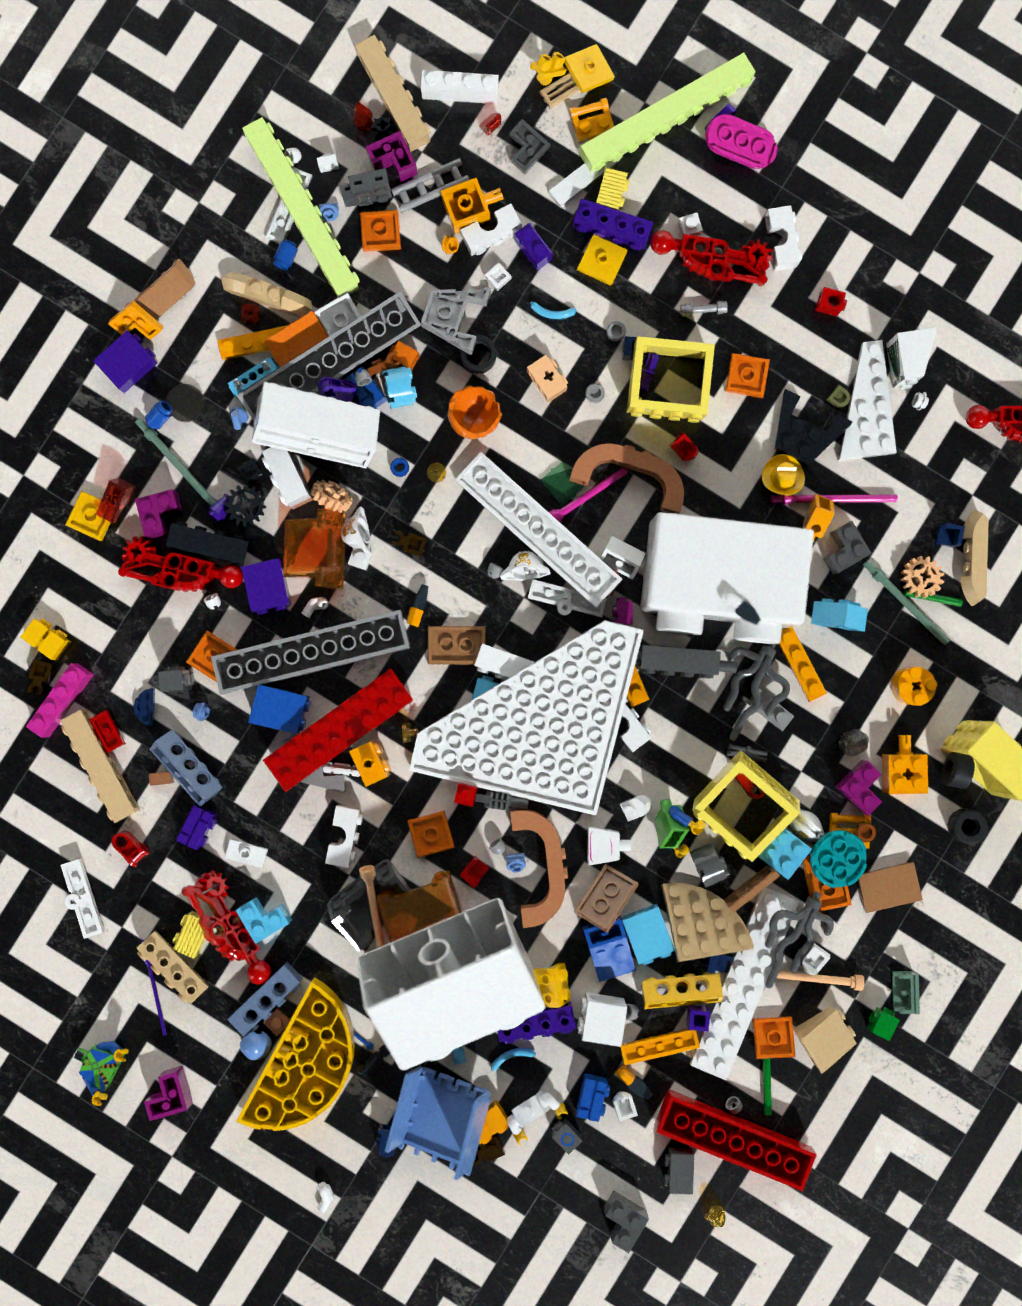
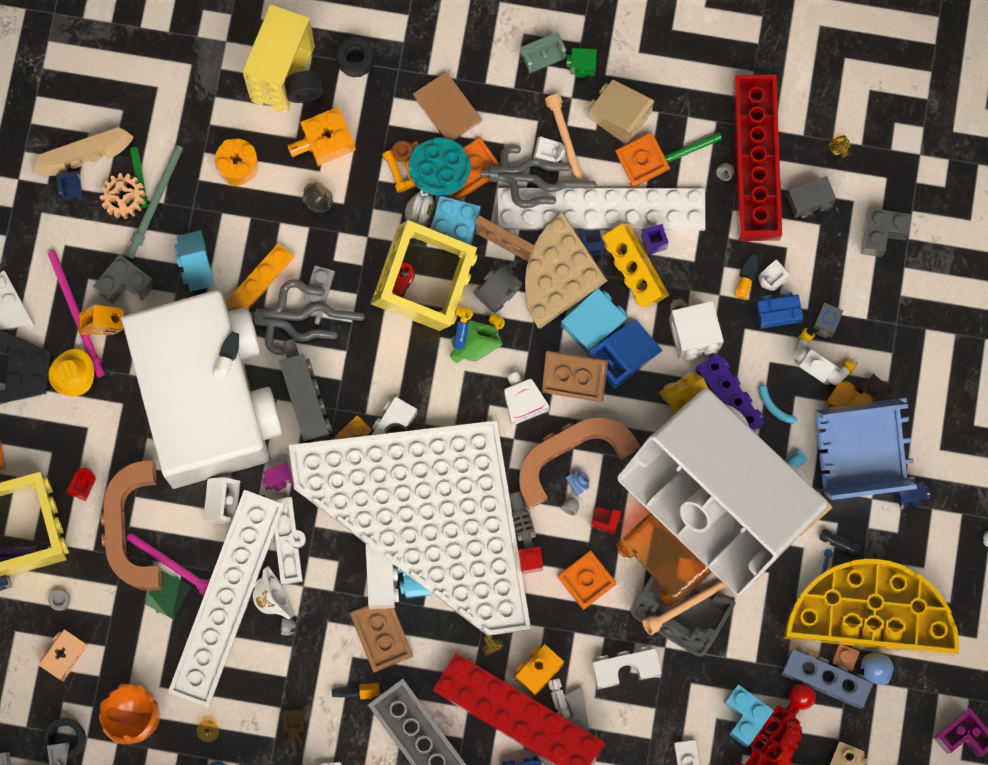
camera: 110 degrees left, 10 degrees down
(636, 807) = (471, 384): white plate -> none
(659, 1046) = (699, 266): light orange plate -> none
(752, 753) = (369, 292): dark grey pin -> none
(856, 787) = (360, 177): magenta brick -> none

